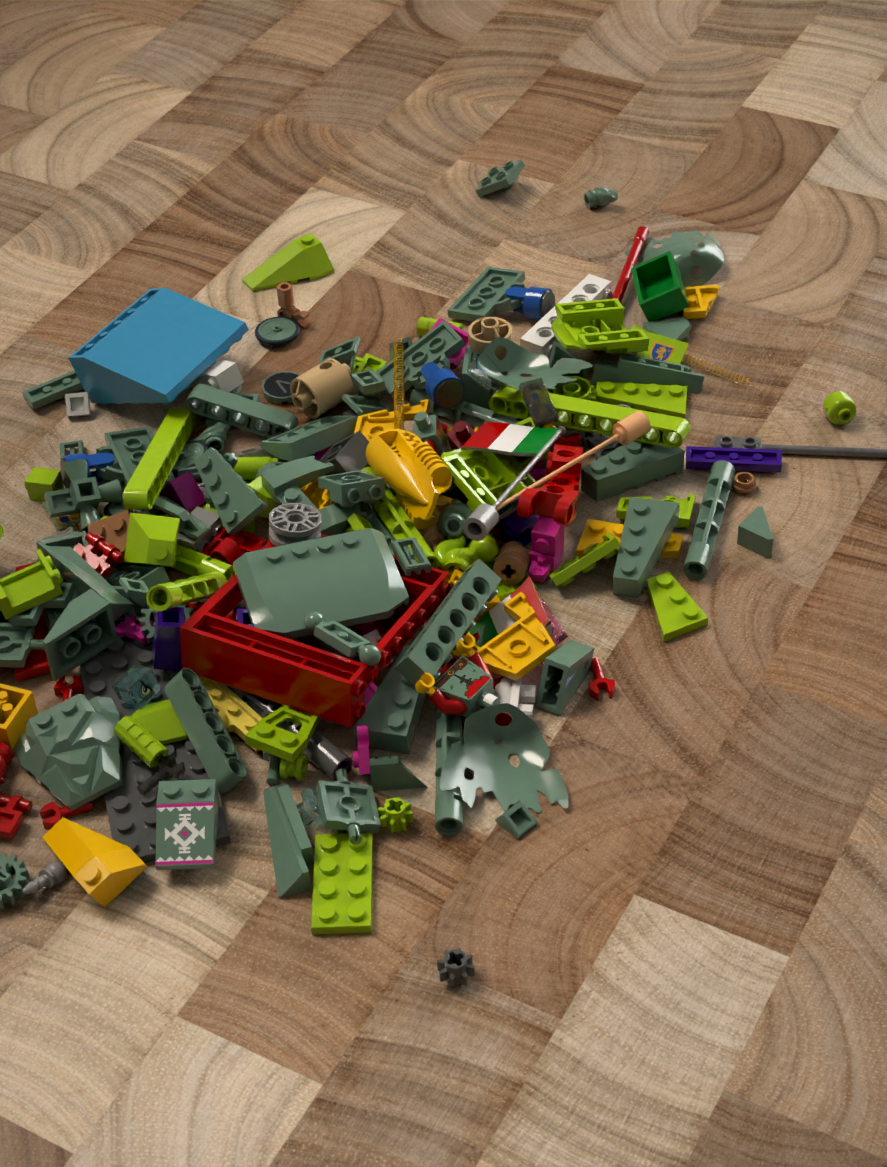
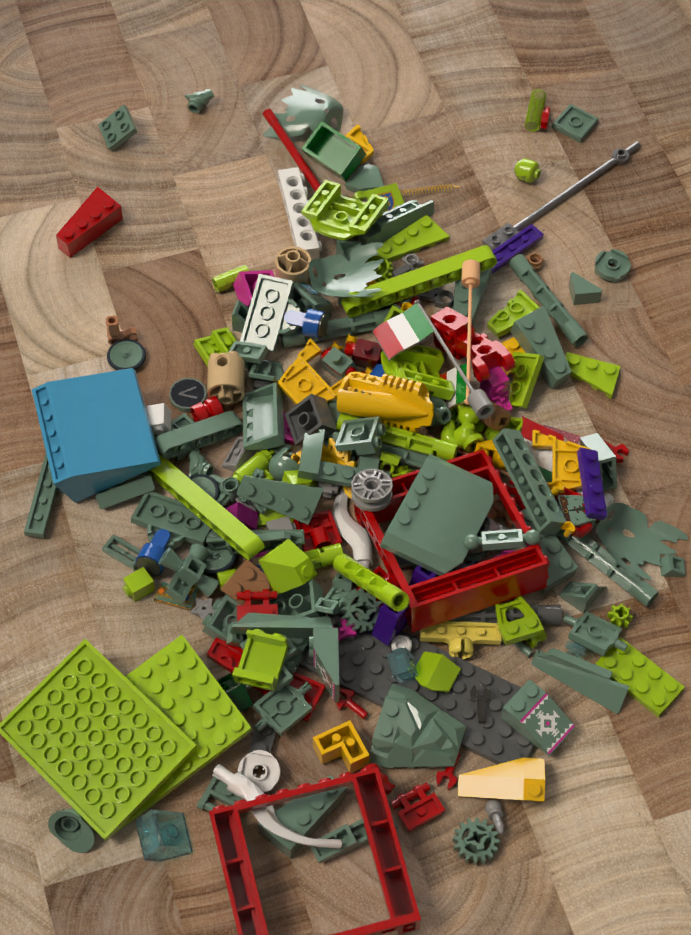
camera: 50 degrees left, 15 degrees up
(77, 404) = (74, 511): white plate -> none
(131, 415) = (125, 491): none -> sand green slope
(140, 741) = (450, 694): lime axle -> none
(164, 675) = (401, 642): none -> white tile
(205, 730) = (474, 656): sand green beam -> none
(280, 400) = (209, 409): none -> red wheel
(296, 261) = (68, 293): lime wedge -> none
(343, 352) = (209, 342): sand green slope -> none
(361, 758) = (564, 596): dark pink plate -> none
(380, 226) = (89, 222): none -> red wedge
(395, 385) = (292, 350): yellow piece -> none
(413, 566) = (453, 457): sand green tile -> none
(501, 292) = (233, 227): sand green plate -> none
(507, 668) = (591, 483): none -> dark purple plate
(538, 402) = (391, 294): clear smoke tile -> none
(833, 539) = (610, 273): none -> sand green plate

